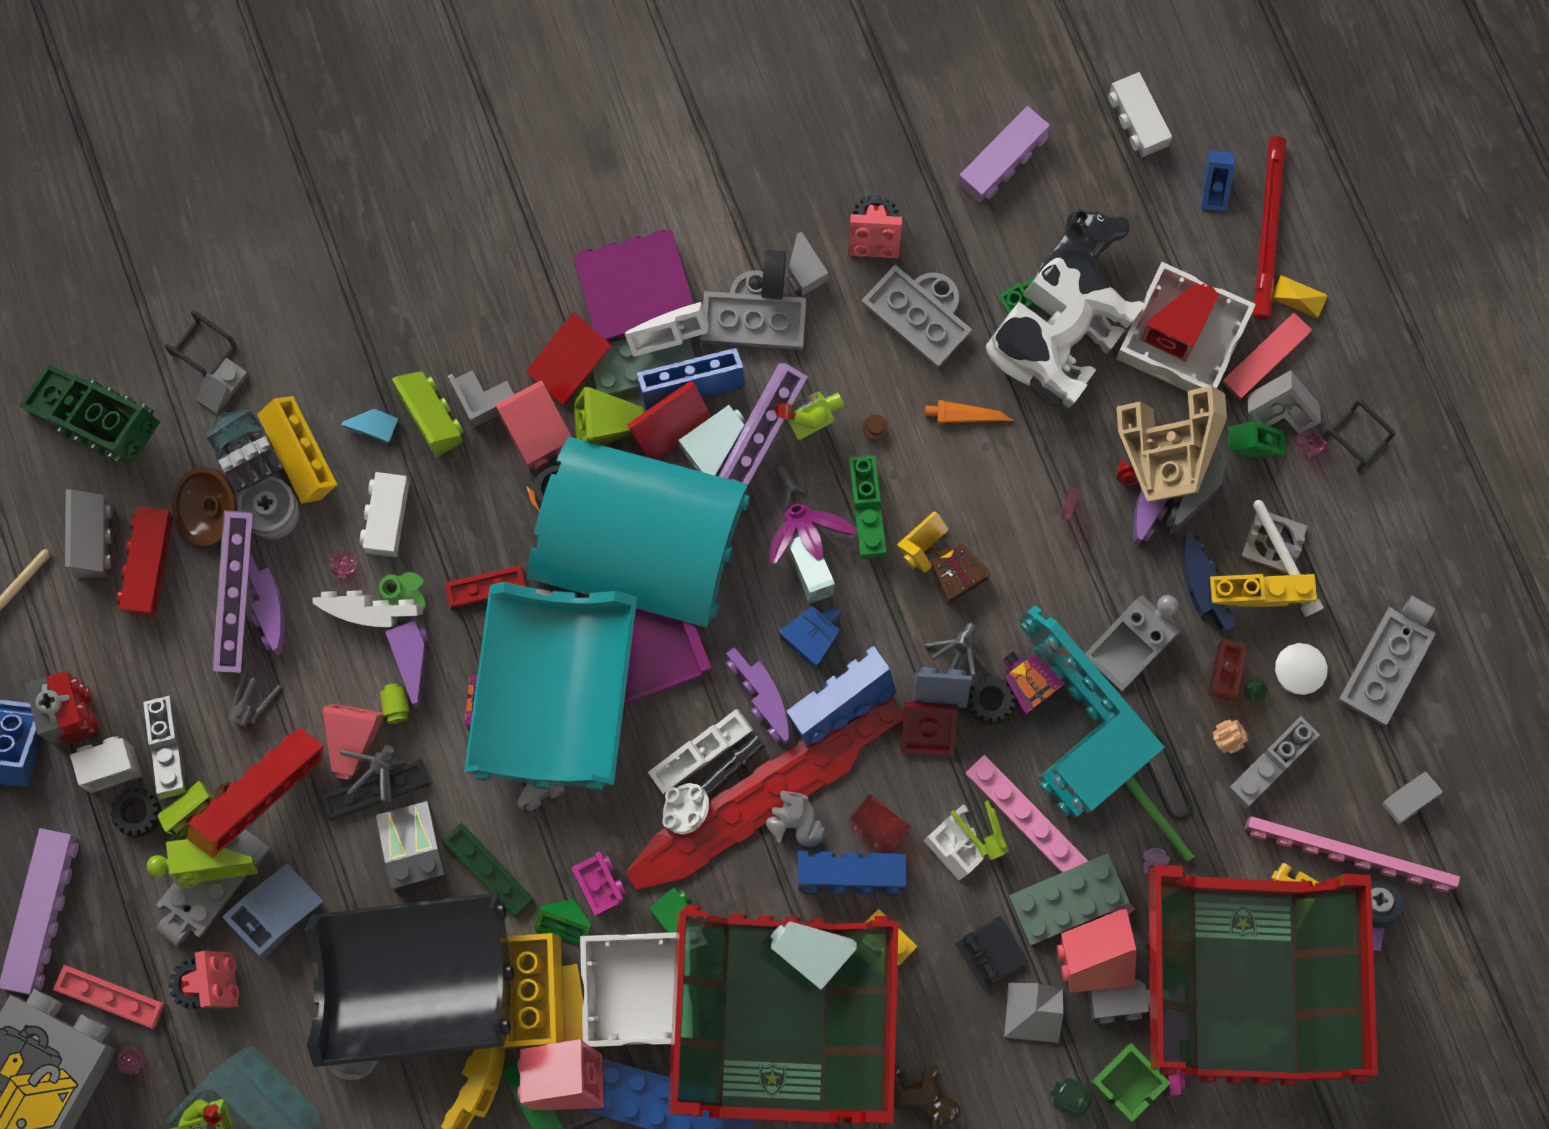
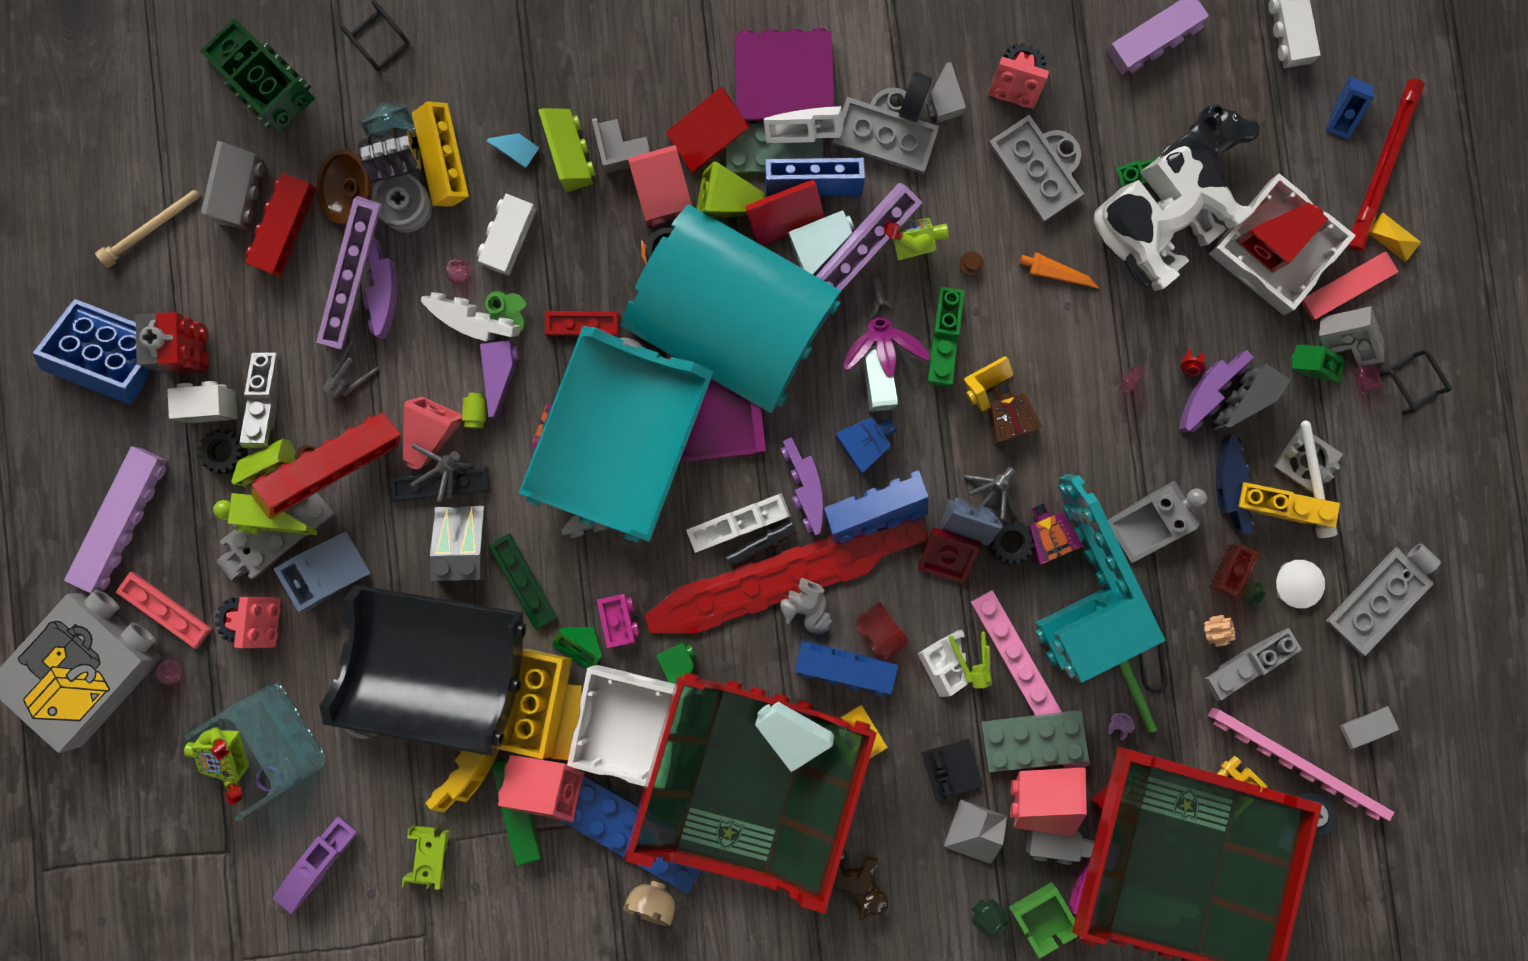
camera: 15 degrees right, 10 degrees up
(220, 387) = (385, 79): light grey slope -> none
(685, 808) = (711, 572): white dish -> none
(1173, 456) = (1244, 362): tan wedge -> none

